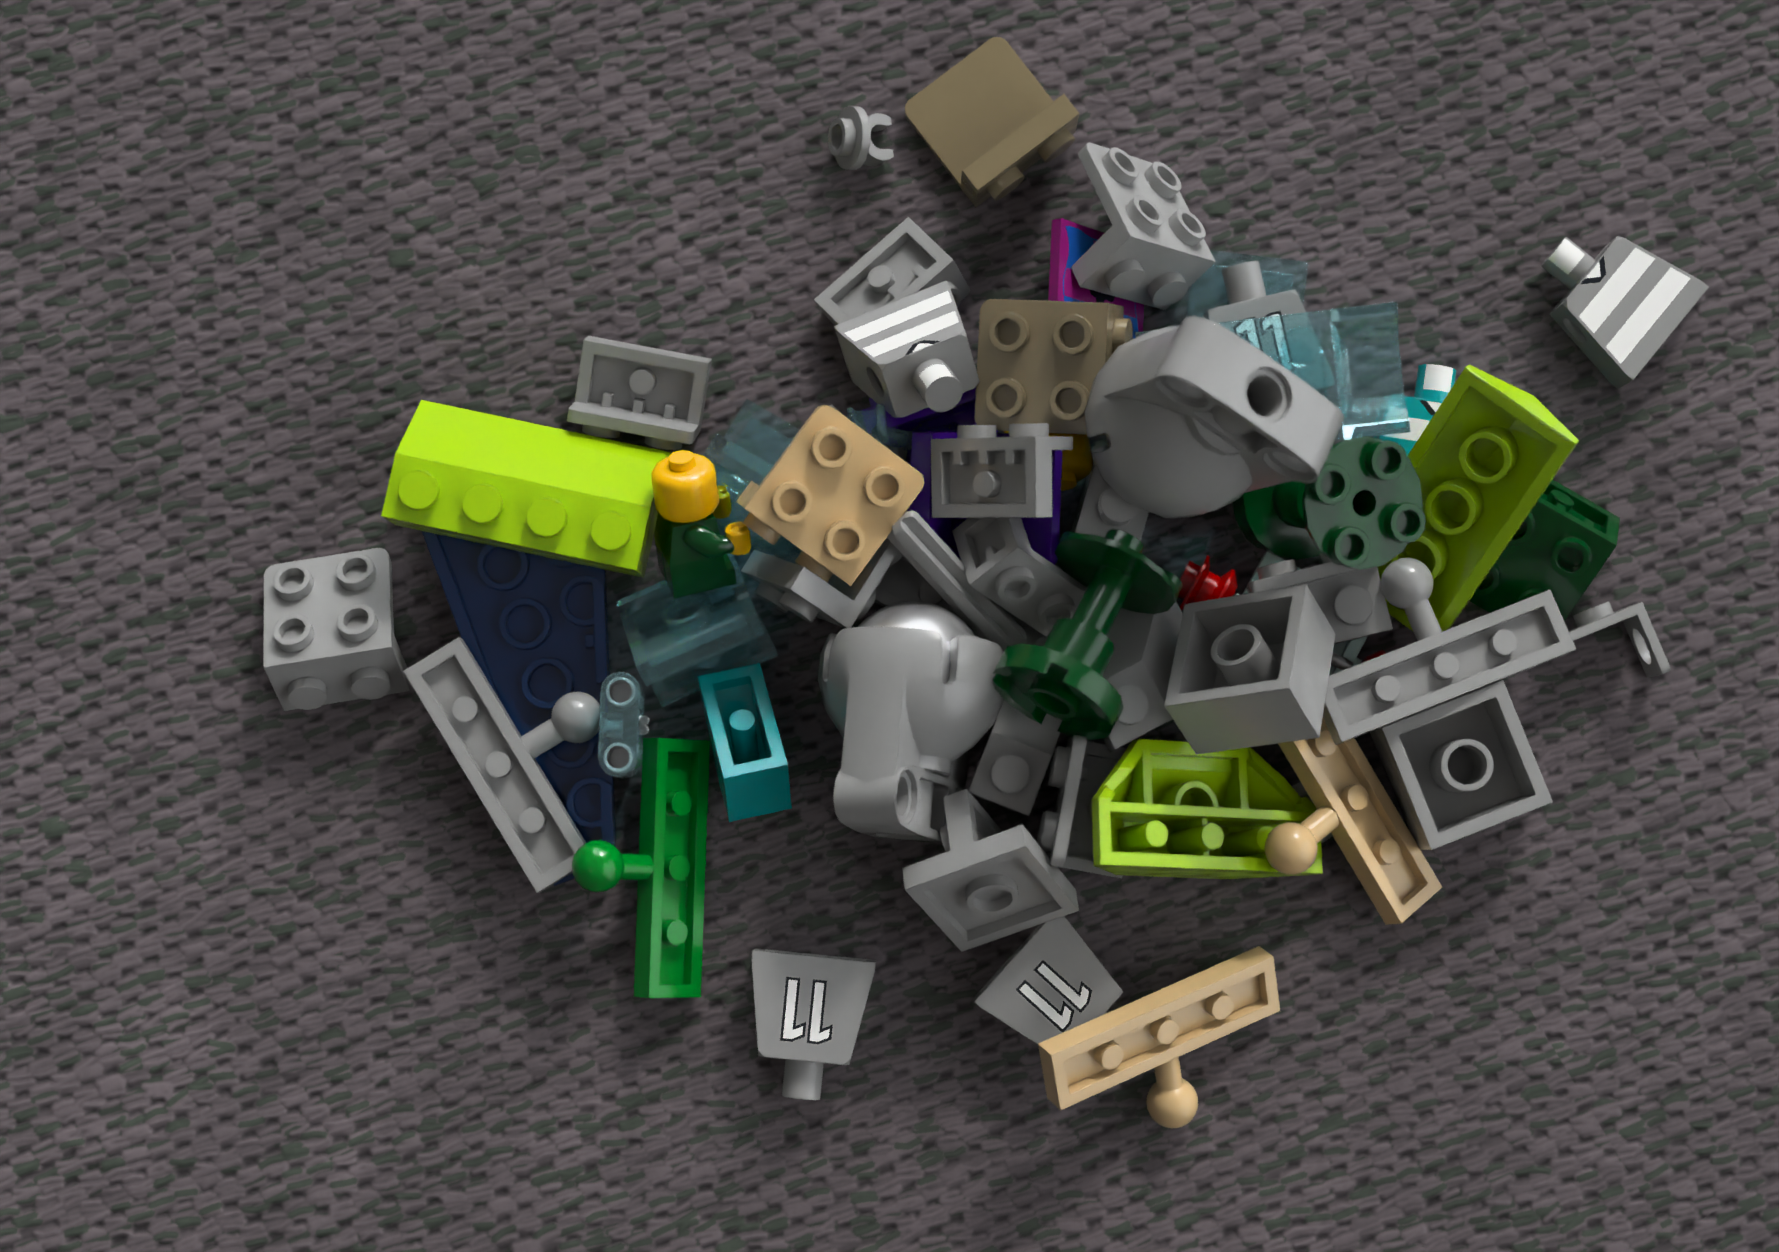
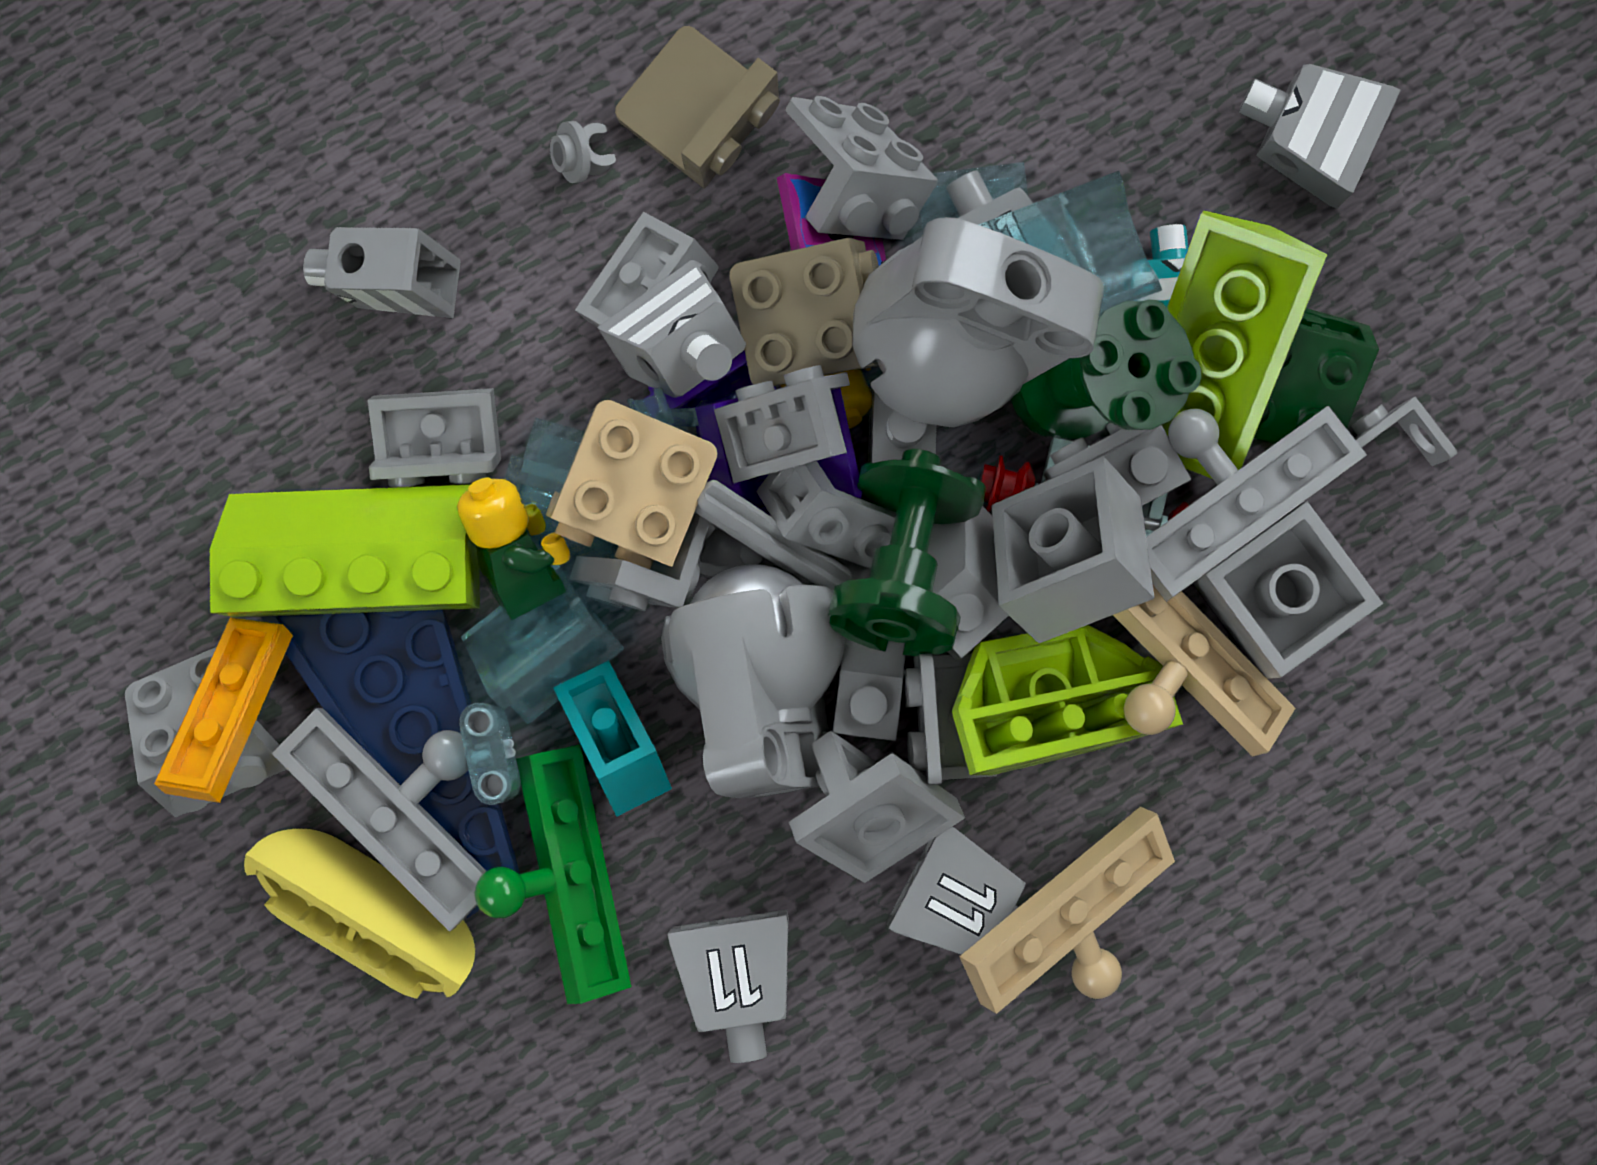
camera: 15 degrees left, 0 degrees up
(368, 615) = (224, 710): none -> light orange tile
(449, 853) = (359, 912): none -> light yellow brick
(633, 213) = (386, 270): none -> light grey torso

